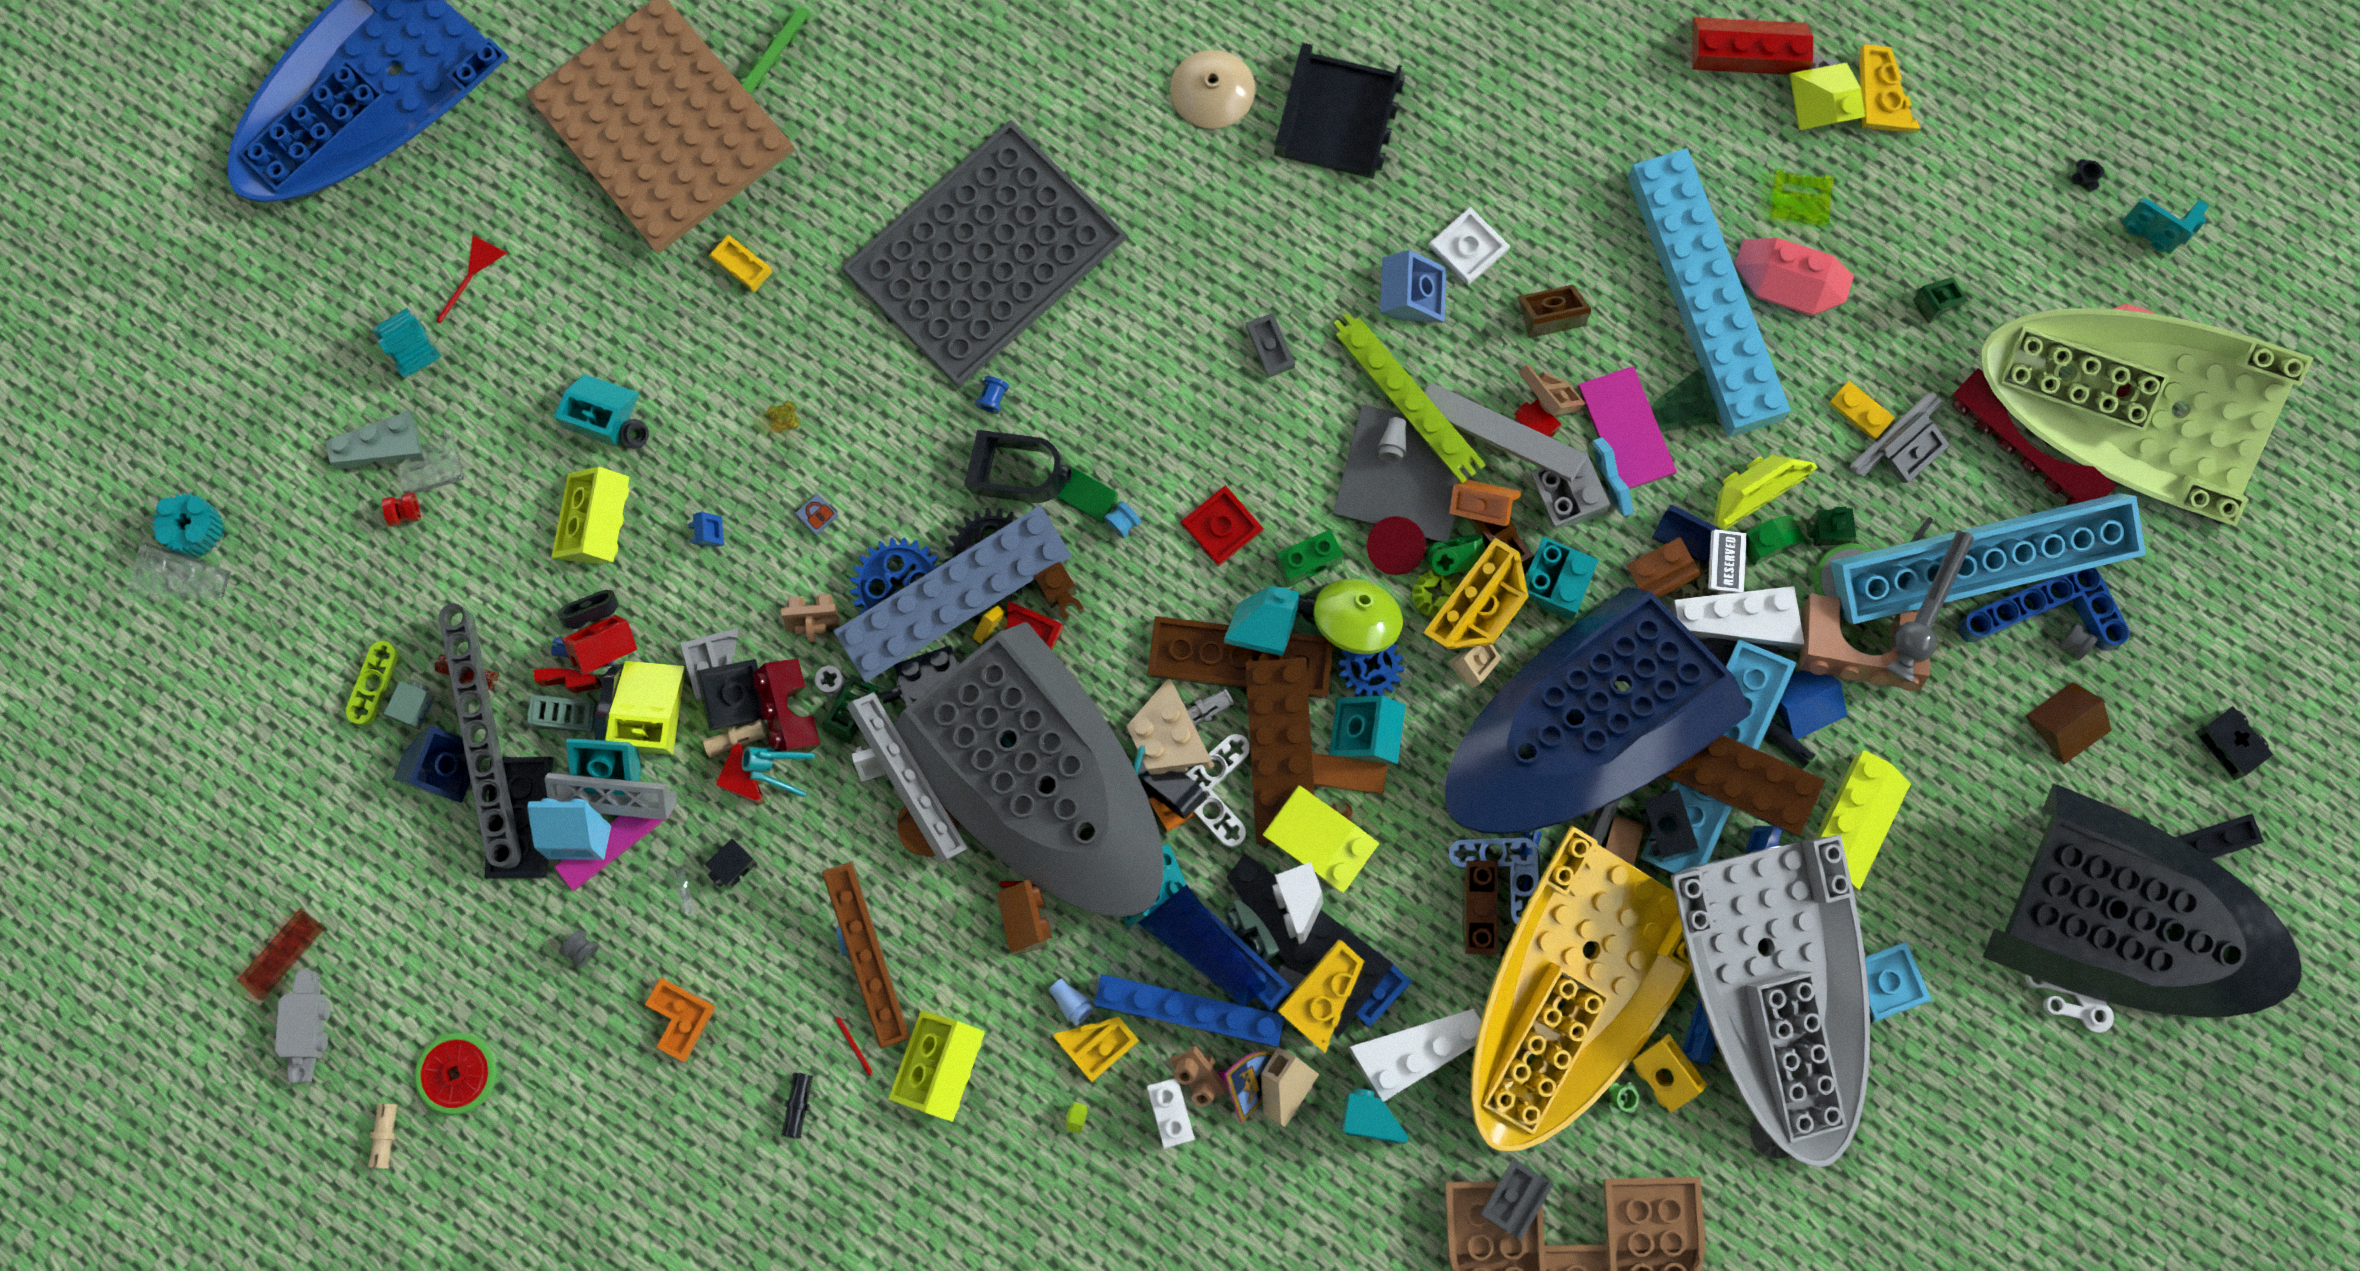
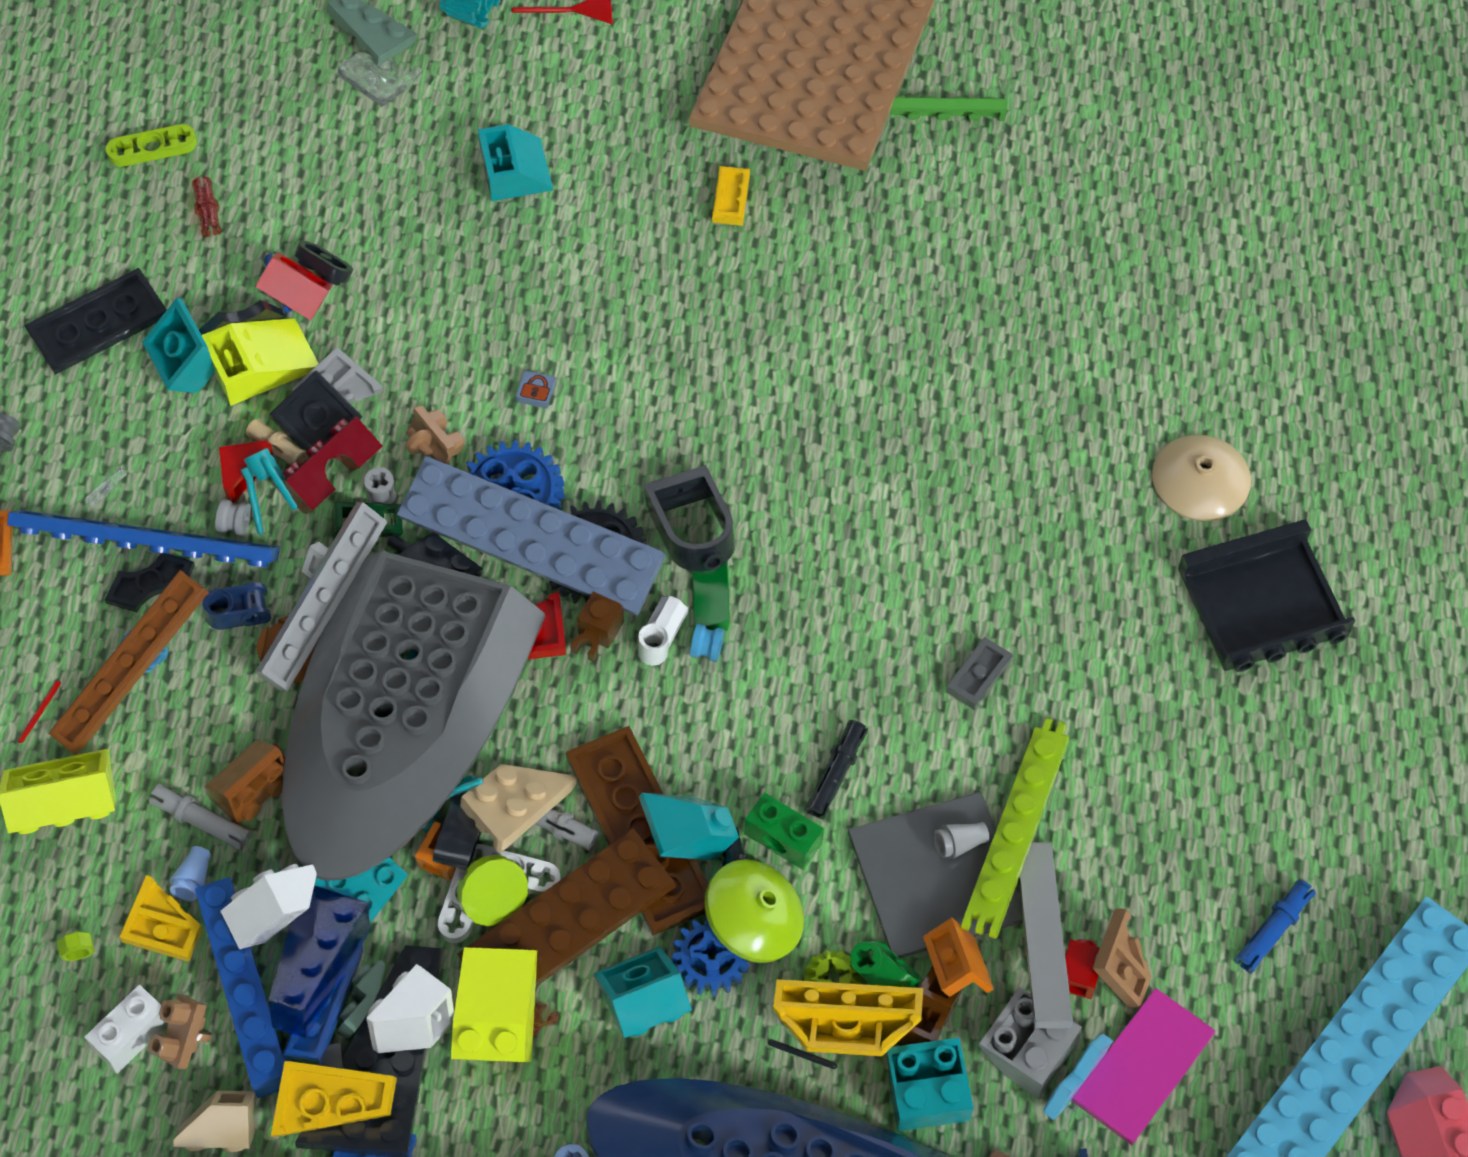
camera: 55 degrees right, 15 degrees down
(401, 509) = (319, 74): red wheel -> none
(410, 704) = (148, 180): sand green brick -> none
(435, 764) = (107, 232): dark blue slope -> none
(489, 746) = (186, 208): dark grey beam -> none
(537, 701) = (205, 279): sand green slope -> none
(568, 830) = (103, 356): medium azure slope -> none
(574, 679) = (246, 278): red slope -> none
(591, 516) = (412, 217): neon yellow slope -> none
(623, 835) = (120, 404): dark pink tile -> none
(641, 430) = (511, 215): black plate -> none
(643, 798) = (164, 392): light grey fence -> none
(707, 530) = (460, 310): blue tile -> none
(729, 864) = (152, 506): black brick -> none
(746, 894) = (129, 536): none -> blue plate
(781, 807) = (233, 517): none -> light grey wheel
(789, 422) = (610, 318): clear yellow plate -> none
(793, 916) = (133, 589): none -> black tile
(866, 840) = (239, 606): none -> dark blue piece
(984, 253) = (889, 382): dark grey tile -> none
(988, 623) = (529, 586): yellow tile -> none
(992, 394) = (752, 462): blue bush -> none
(1016, 976) = (187, 810): none -> light grey pin
(1089, 545) = (661, 630): none -> white piece
(1149, 954) = (269, 904): none -> white slope
(1221, 526) = (764, 737): red tile -> none
(1230, 789) = (492, 890): none -> lime tile
(1245, 1082) = (197, 1079): shield -> none
(1281, 492) = (842, 757): none -> black pin
(1349, 773) = (587, 1002): dark orange tile -> none
(1396, 545) = (855, 907): dark red tile -> none
(1412, 288) = (1136, 769): medium blue slope -> none
(1469, 246) = (1223, 798): white tile -> none
(1474, 663) = (783, 1054): tan slope -> none
(1554, 310) = (1214, 917): reddish brown slope -> none
(1580, 266) = (1282, 916): none -> blue pin
(1686, 404) = (1214, 1110): clear green wing -> none

